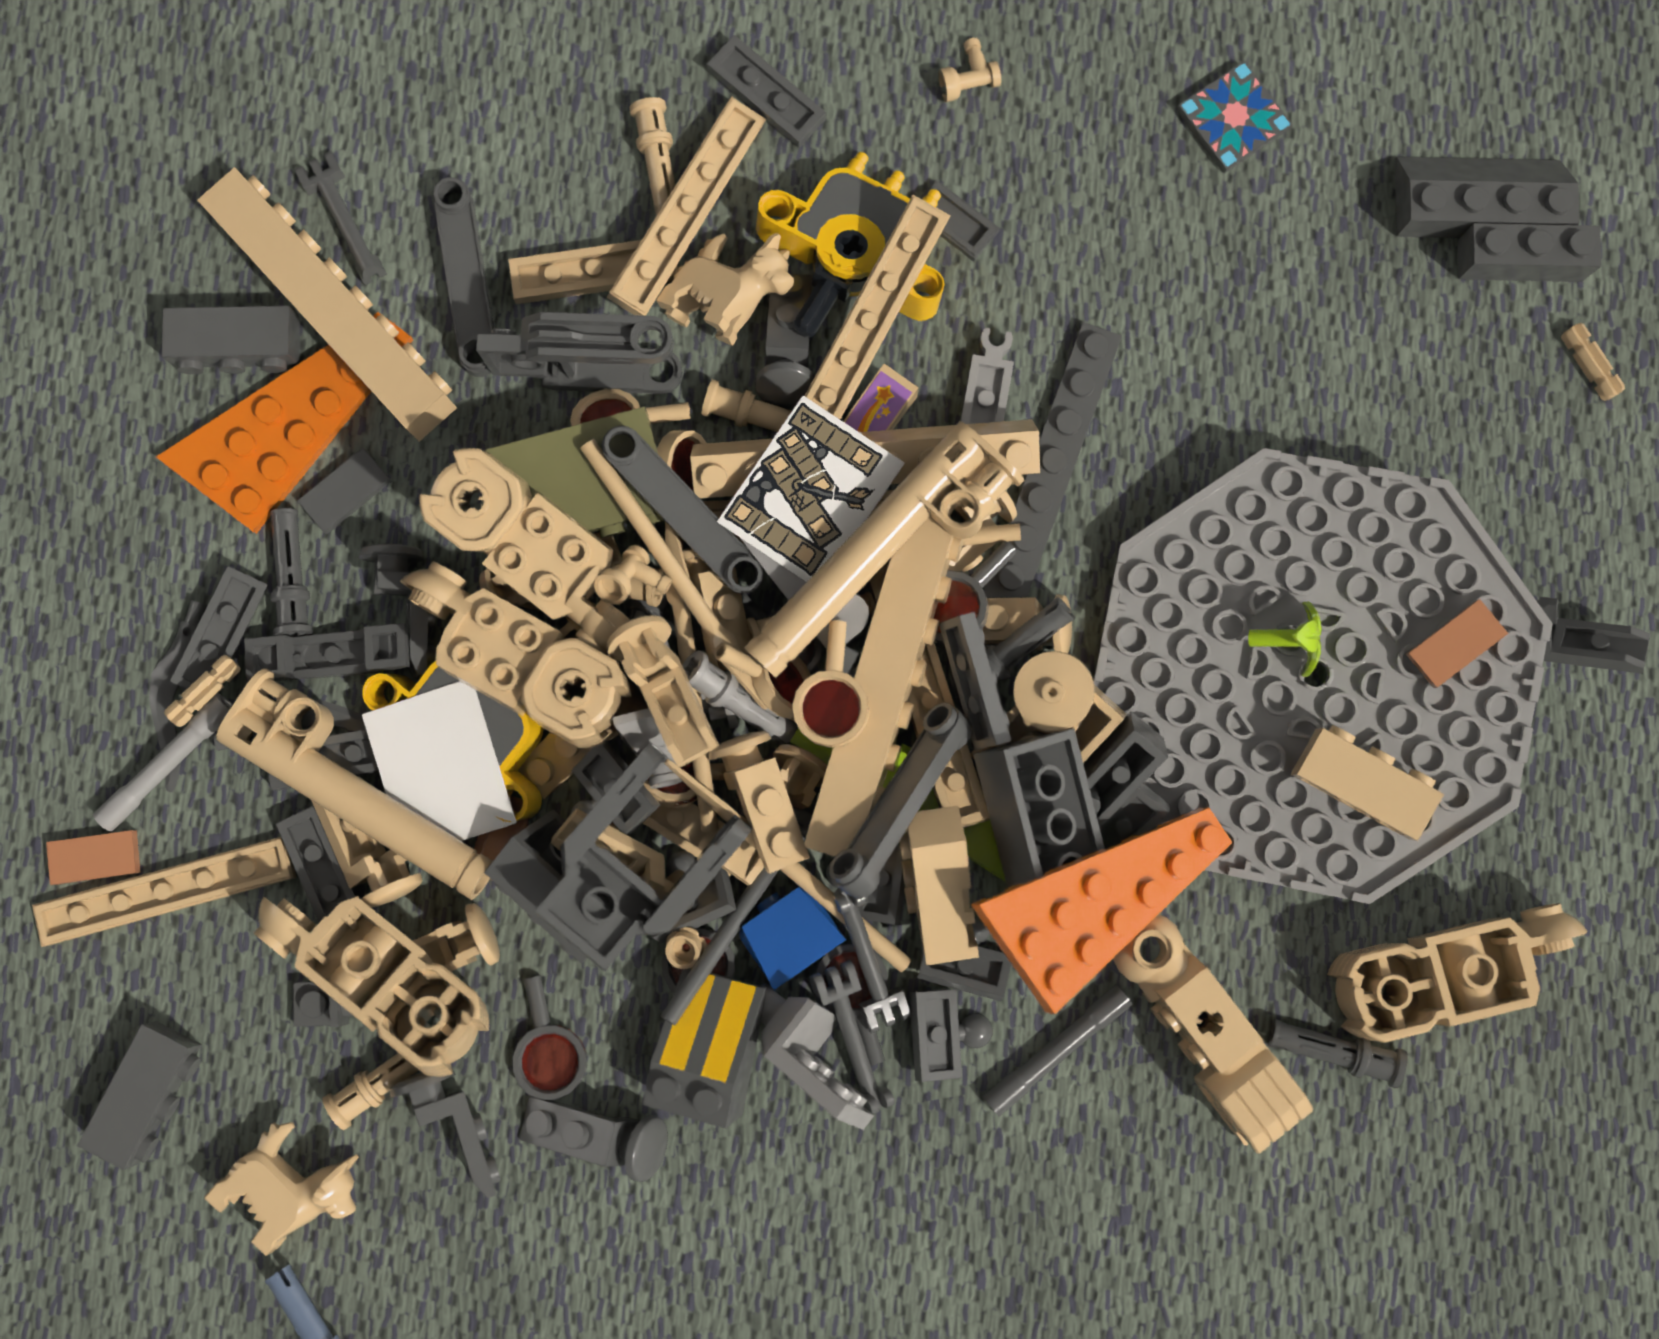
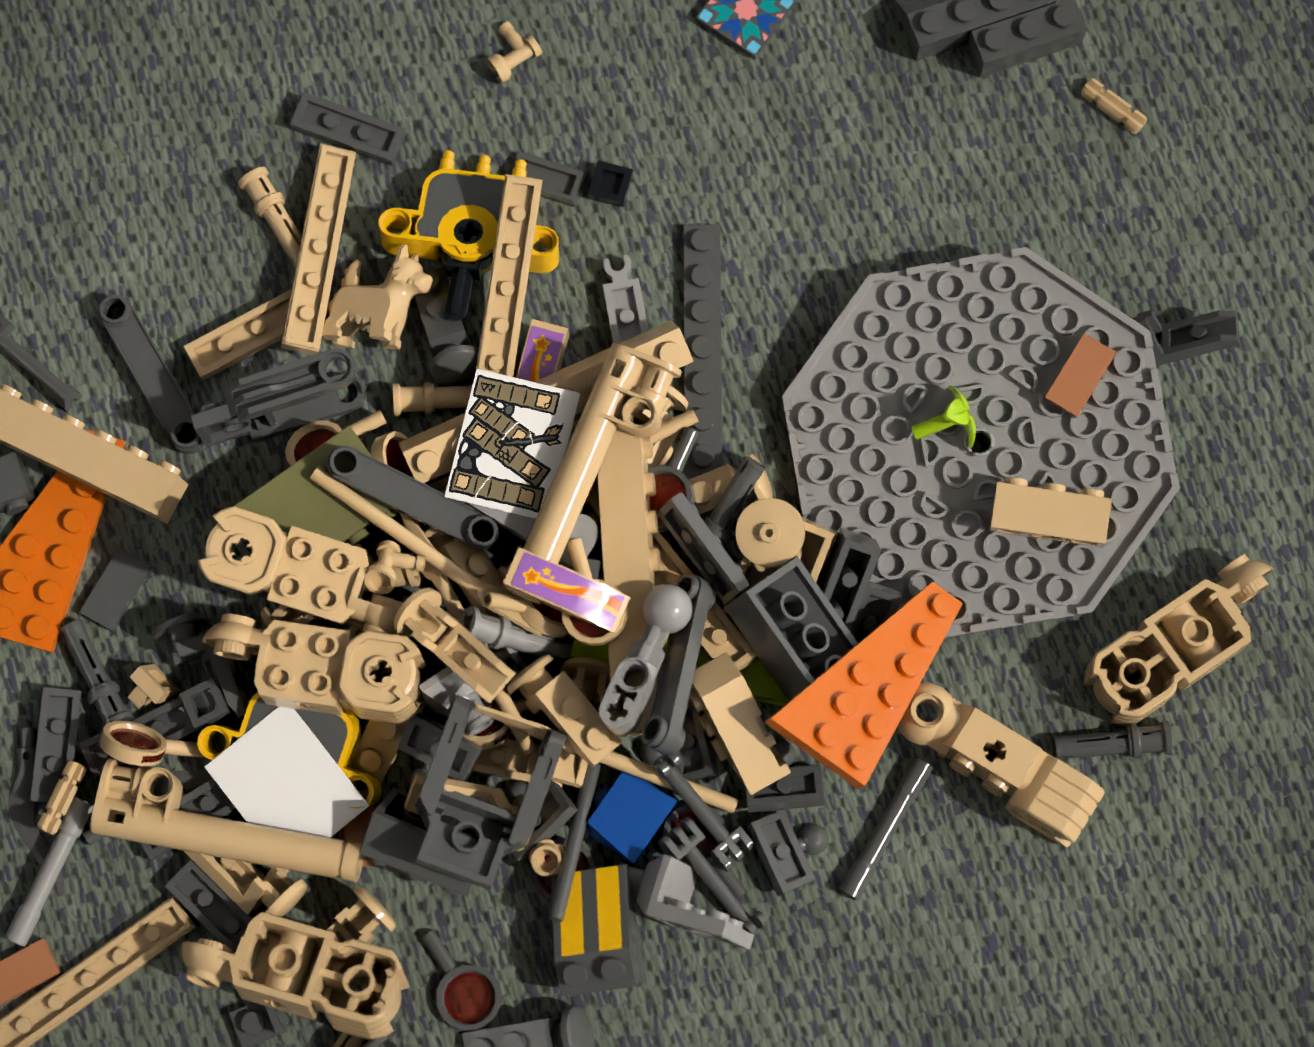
camera: 20 degrees left, 5 degrees down
(302, 665) = (141, 744): none -> tan piece
(342, 606) = (151, 686): none -> tan tile
(808, 675) = (566, 590): none -> slope
(908, 738) = (666, 612): none -> light grey beam
(1021, 250) = (610, 183): none -> black plate

